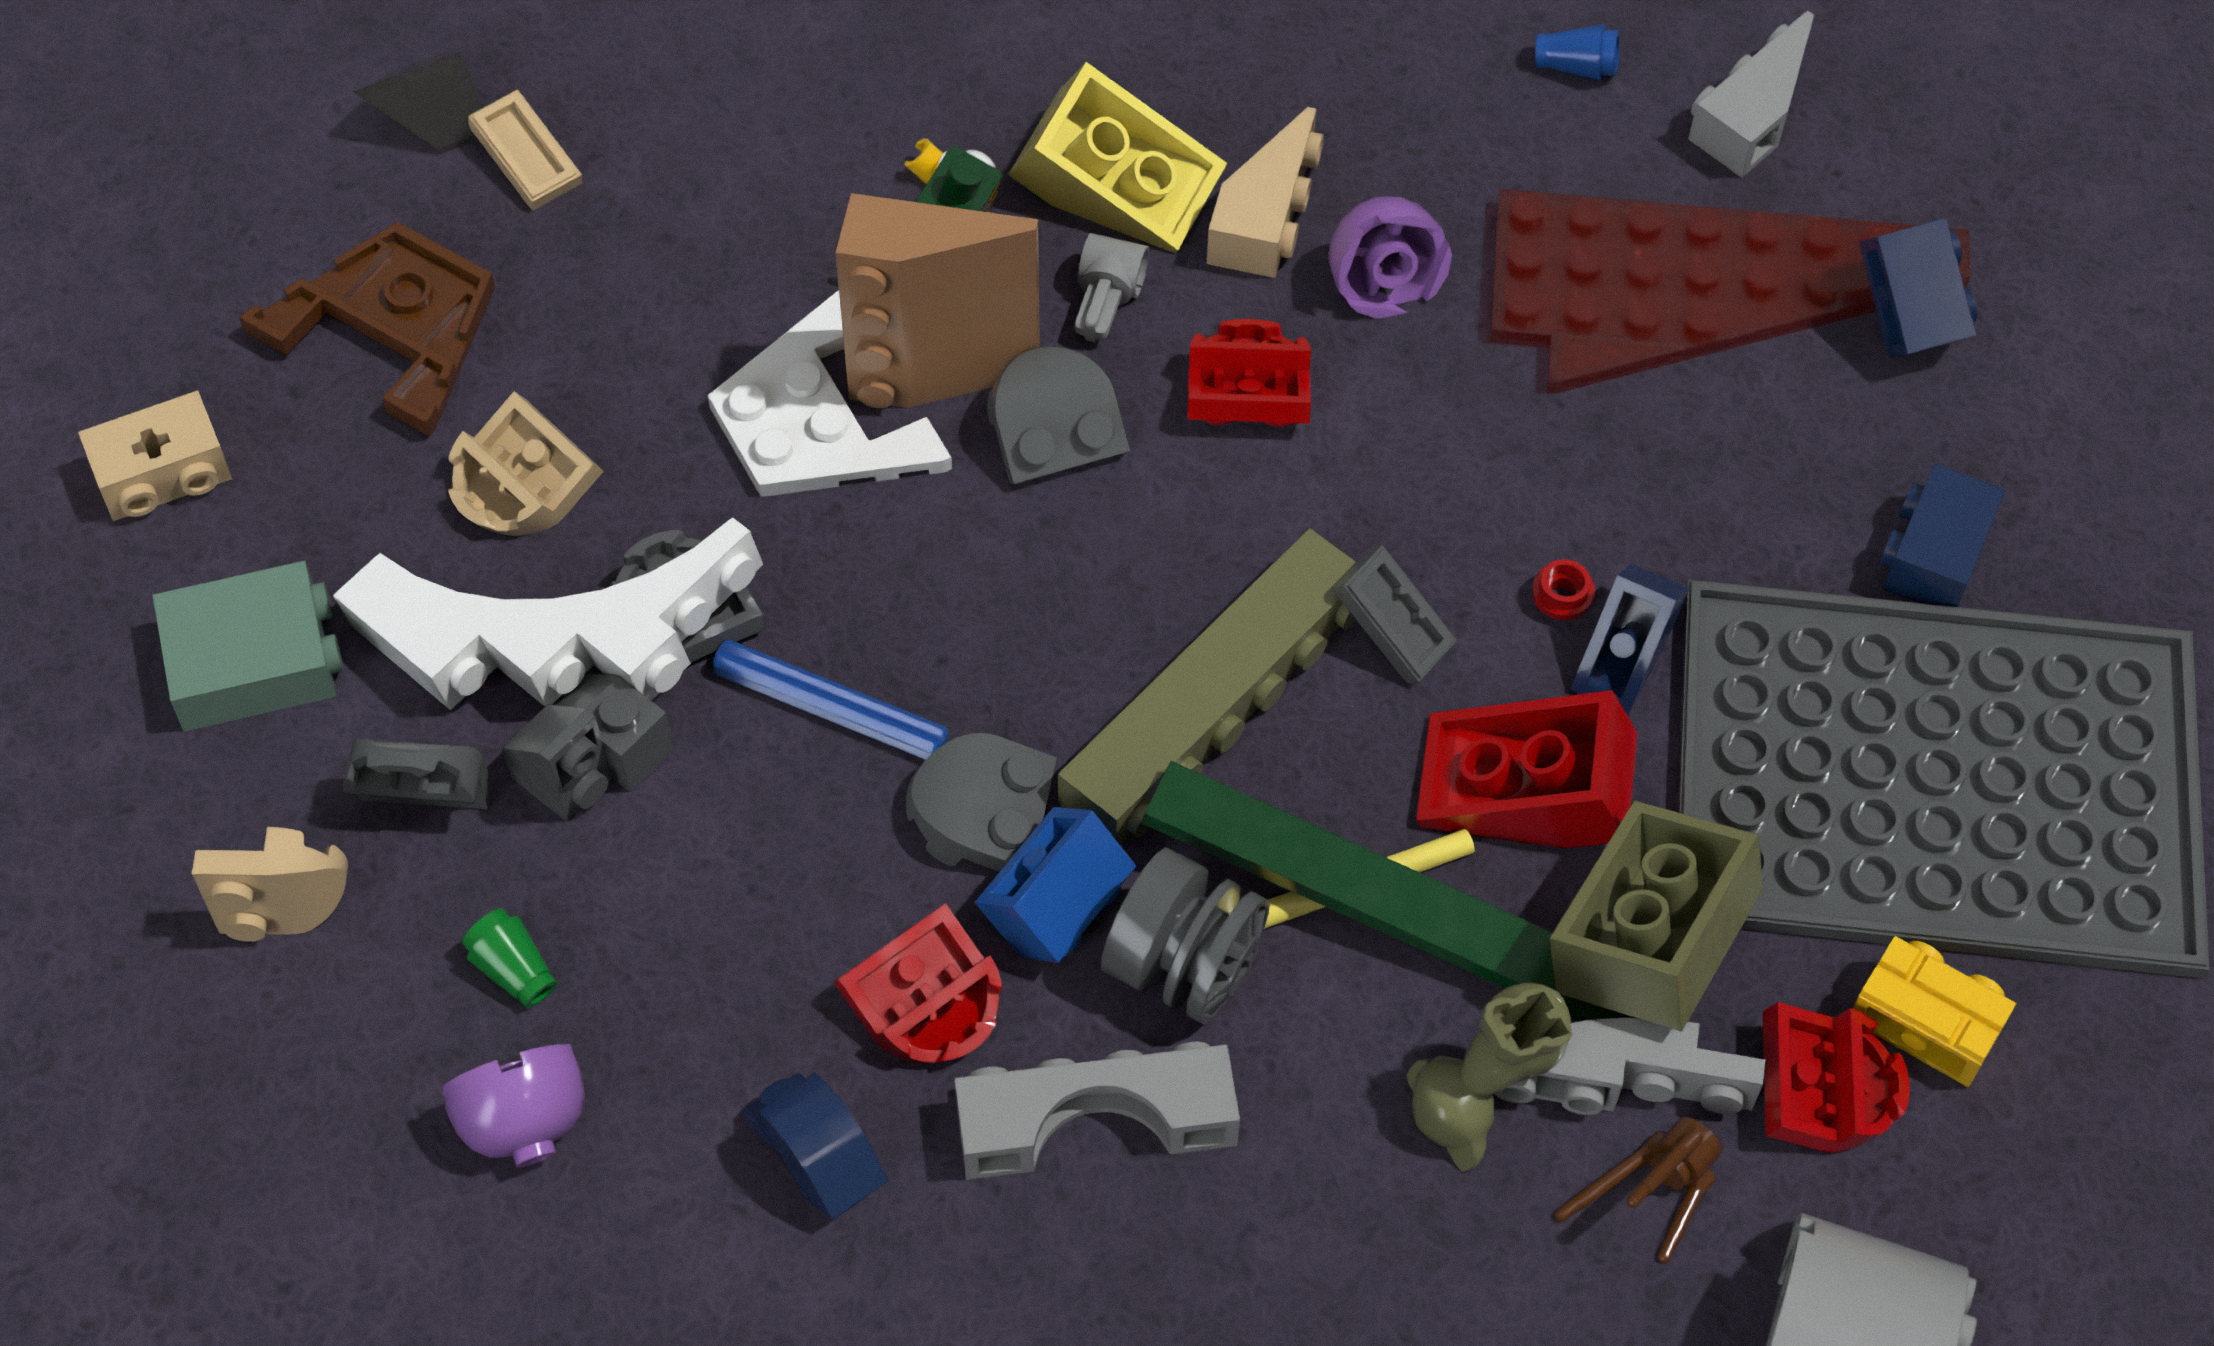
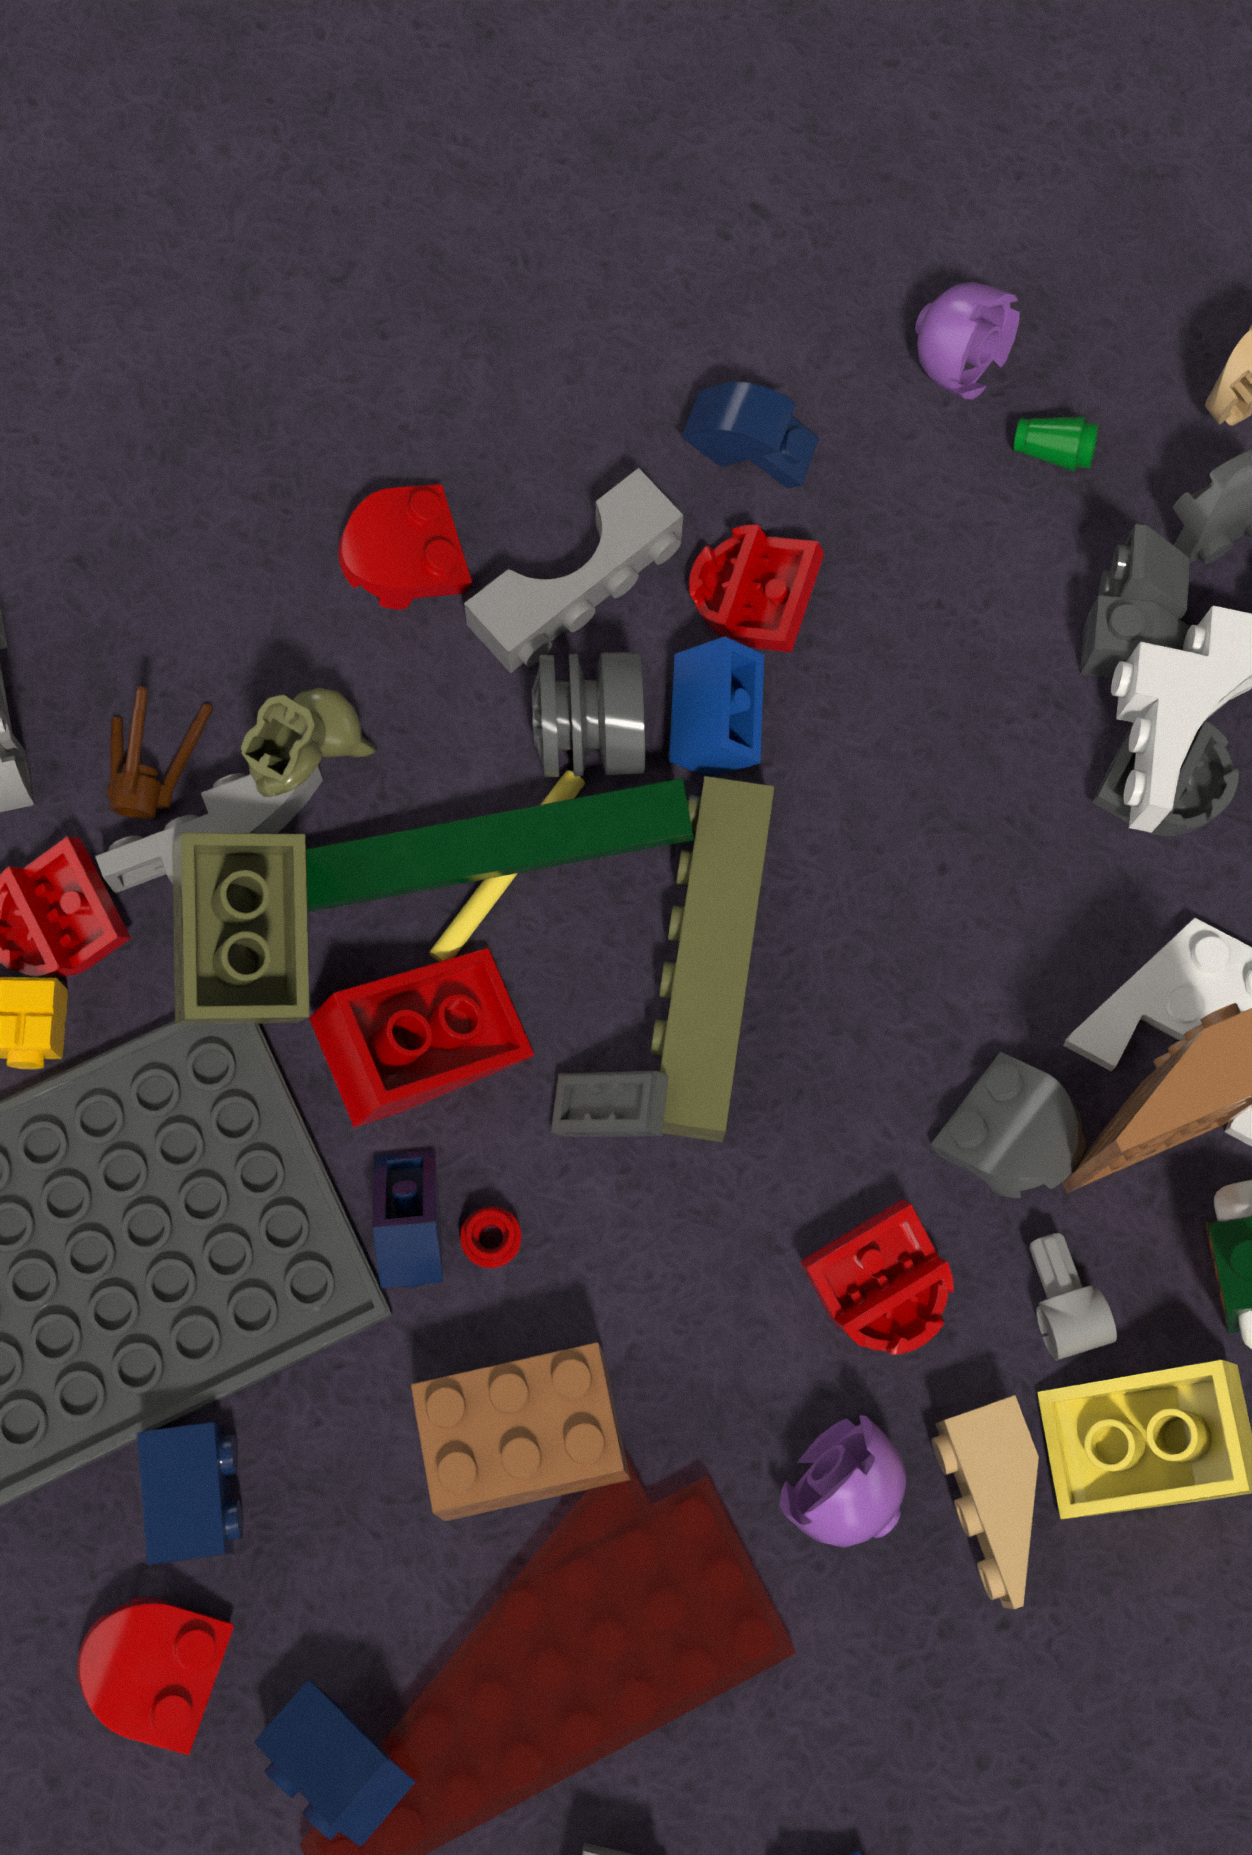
camera: 145 degrees right, 15 degrees up
(829, 699) = (996, 773): axle -> none
(979, 798) = (823, 757): dark grey slope -> none
(1255, 1250) = (404, 546): none -> red slope
(1632, 421) = (519, 1432): none -> medium nougat brick
(2034, 442) = (152, 1670): none -> red slope

